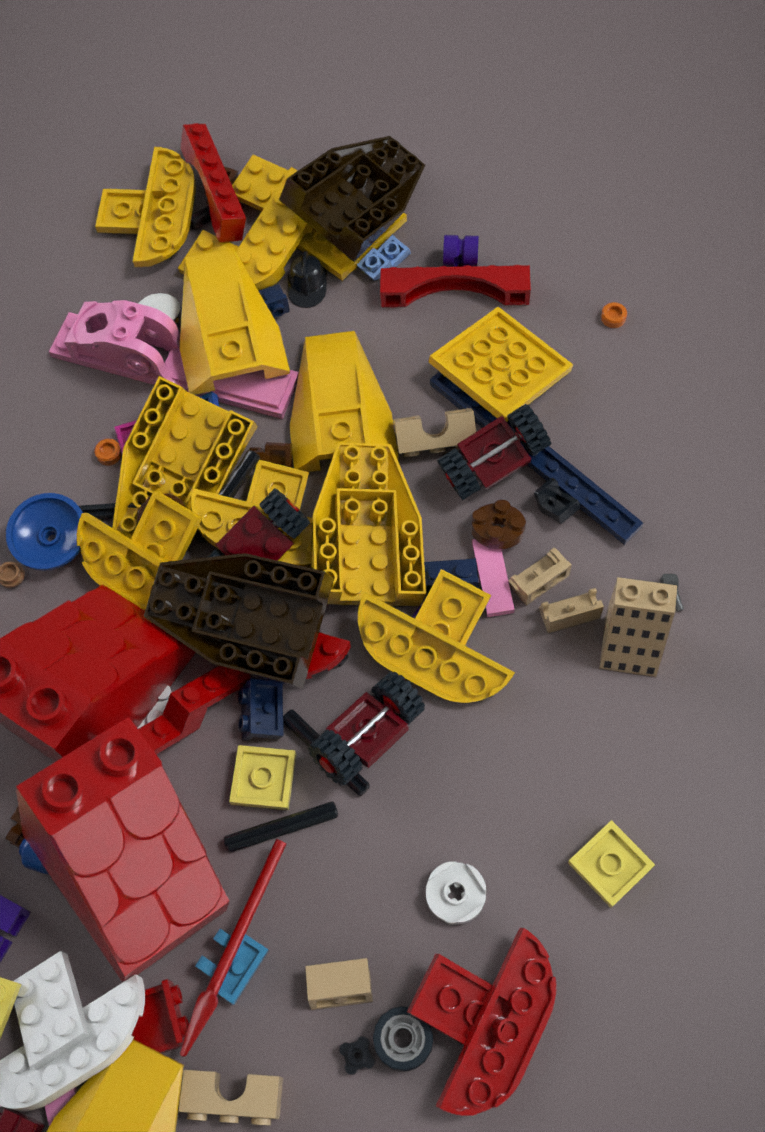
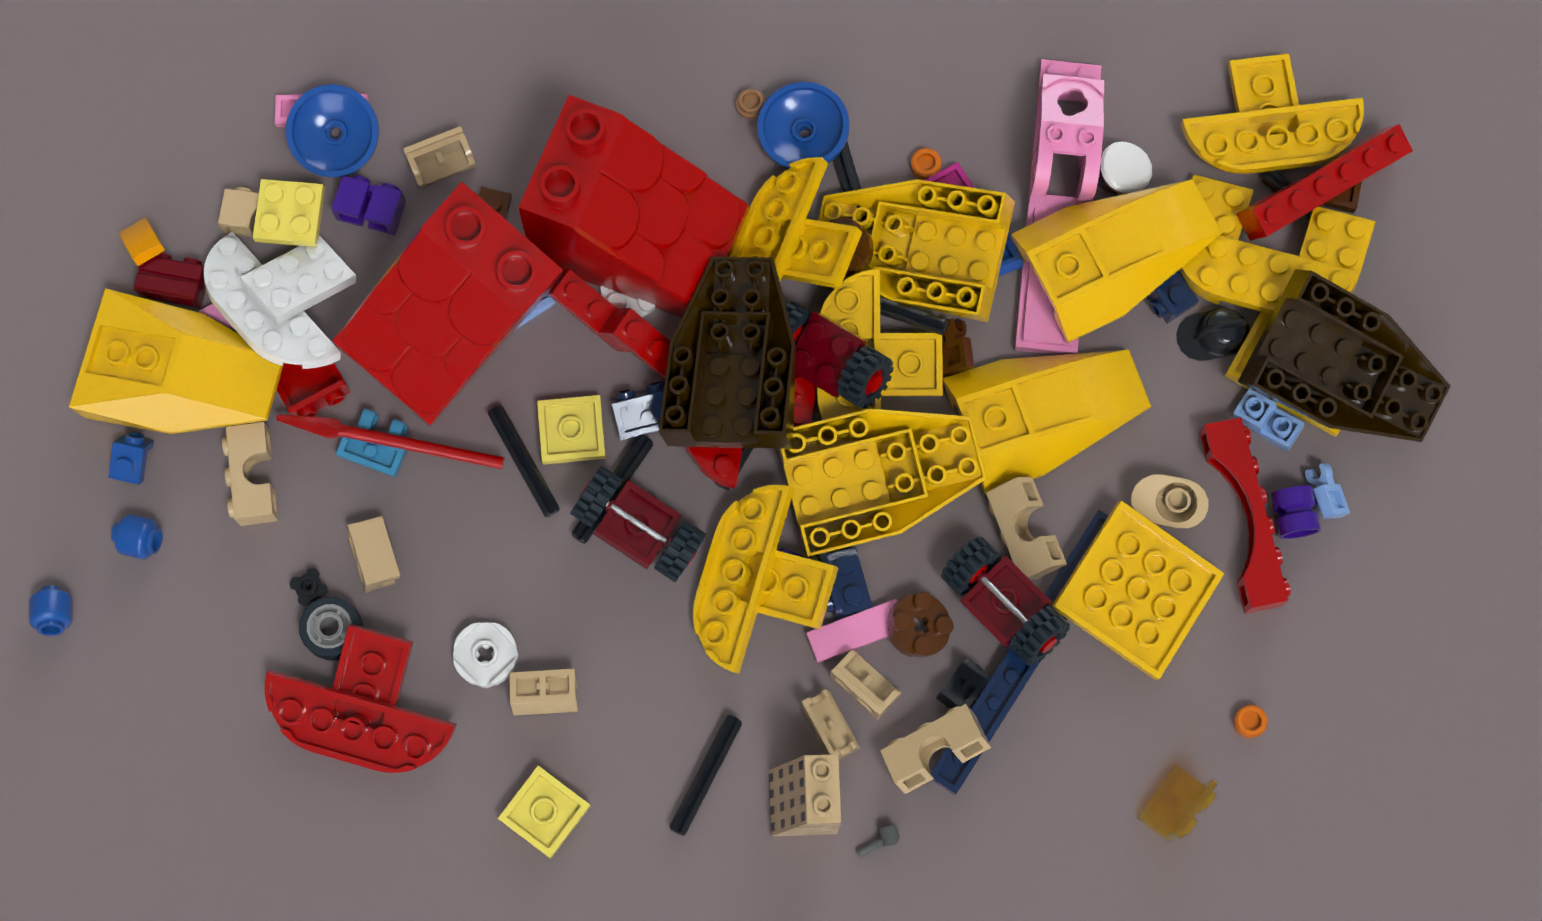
camera: 70 degrees right, 10 degrees up
(435, 326) = (1170, 501): none -> tan piece
(459, 229) = (1328, 495): none -> light blue plate
(501, 843) = (543, 692): none -> tan hinge
(595, 506) = (910, 756): none -> tan arch
(597, 719) = (705, 775): none -> black axle
(676, 368) = (1176, 803): none -> clear yellow bracket

